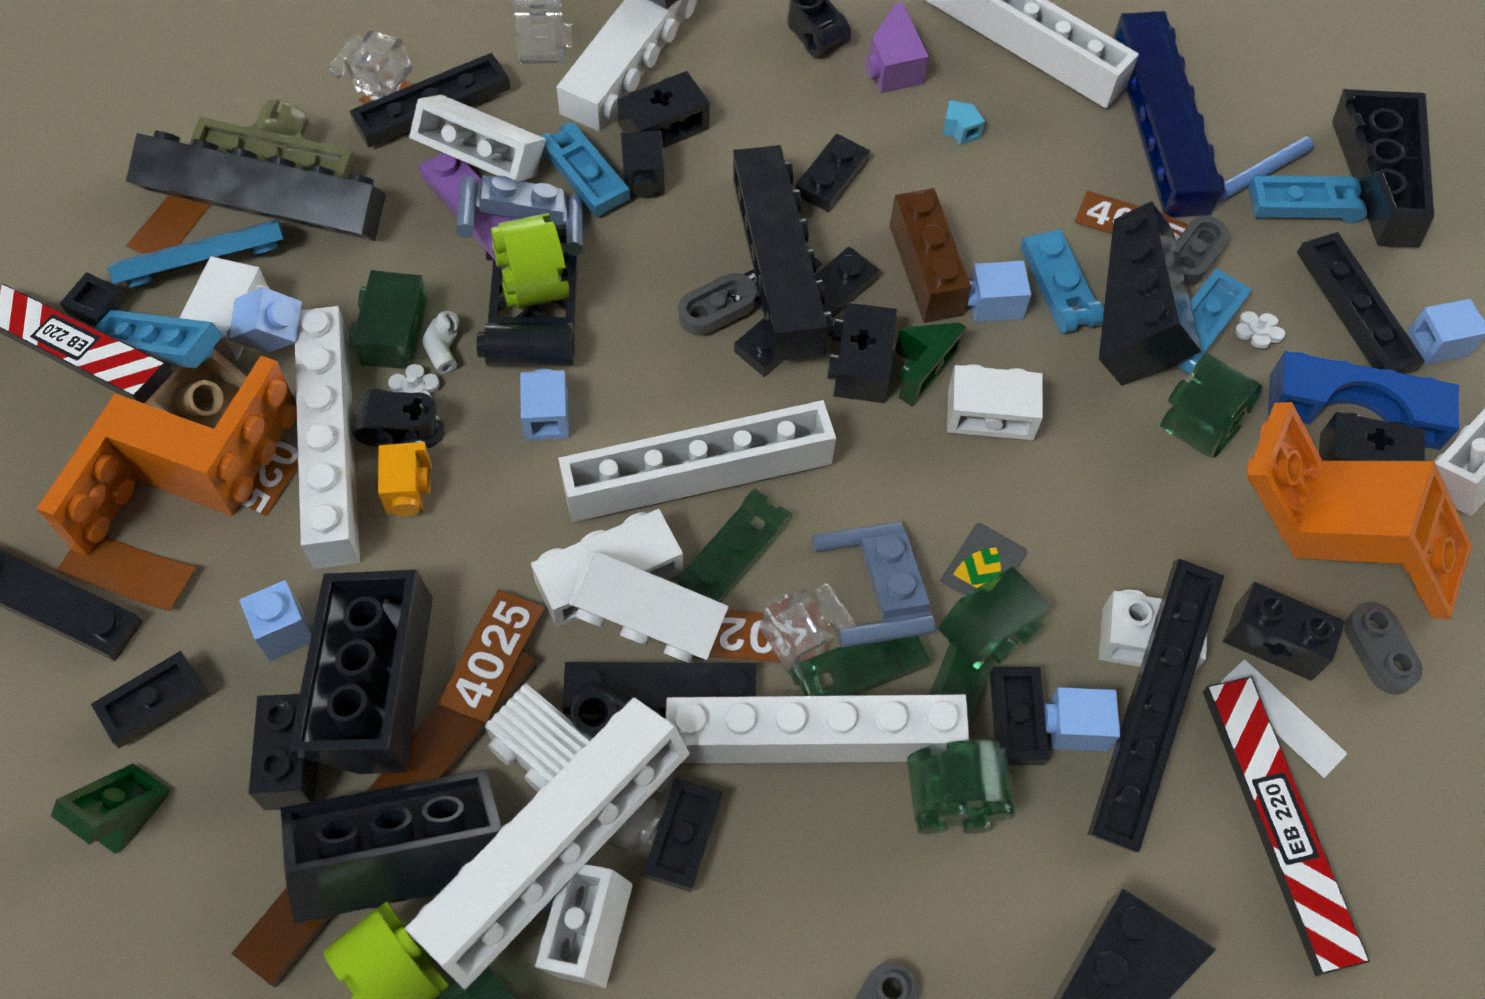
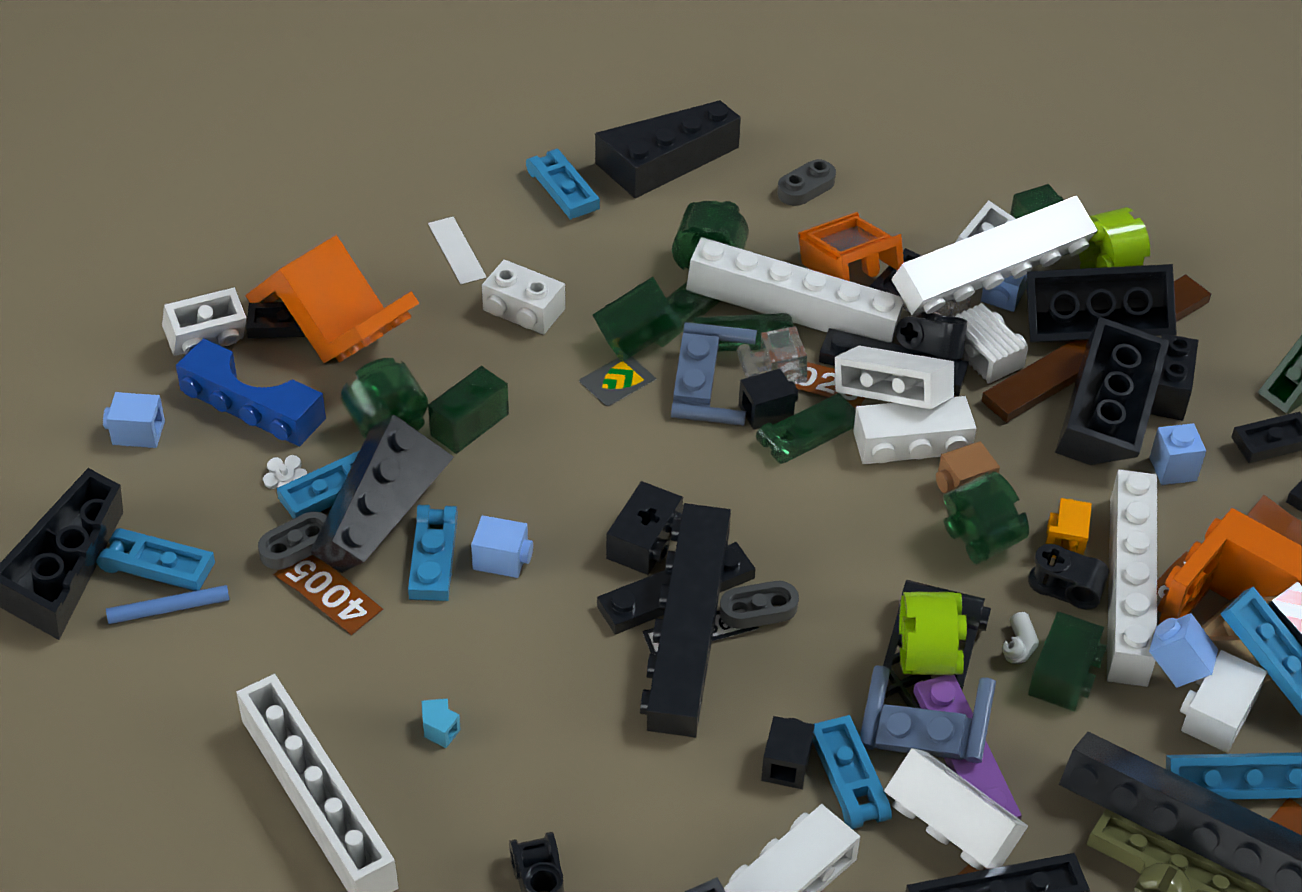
camera: 160 degrees left, 15 degrees down
(415, 381) = (1046, 610): white plant -> none
(491, 655) = (1013, 404): dark orange sticker -> none
(500, 445) = (985, 516): none -> clear green brick
(532, 522) = (964, 465): none -> medium nougat brick
(544, 404) = (938, 555): light blue brick -> none
(669, 106) = (749, 802): black brick -> none
(697, 460) = (823, 470): white brick -> none
(767, 840) = (846, 240): none -> orange window
(794, 561) = (767, 398): none -> black brick
(832, 172) = (595, 709): black plate -> none
(897, 53) = (470, 810): medium lavender slope -> none
(928, 353) = (590, 511): dark green slope -> none
(929, 255) = (547, 589): reddish brown brick -> none
(994, 402) = (557, 456): white brick -> none
(1019, 714) = (647, 266): black plate -> none
(1082, 719) = (603, 266): light blue brick -> none
(1121, 440) = (468, 409): none -> clear green brick
(1156, 706) = (550, 249): black tile -> none
(1169, 118) = (230, 661): clear blue brick -> none
(1217, 876) = (563, 183): none -> dark azure plate
(1284, 631) = (431, 272): black brick -> none
(1285, 828) = (499, 200): tile -> none
(1359, 304) = (189, 463): black plate -> none
(1366, 439) = (274, 355): black brick -> none
(1381, 646) = (365, 253): dark grey plate -> none

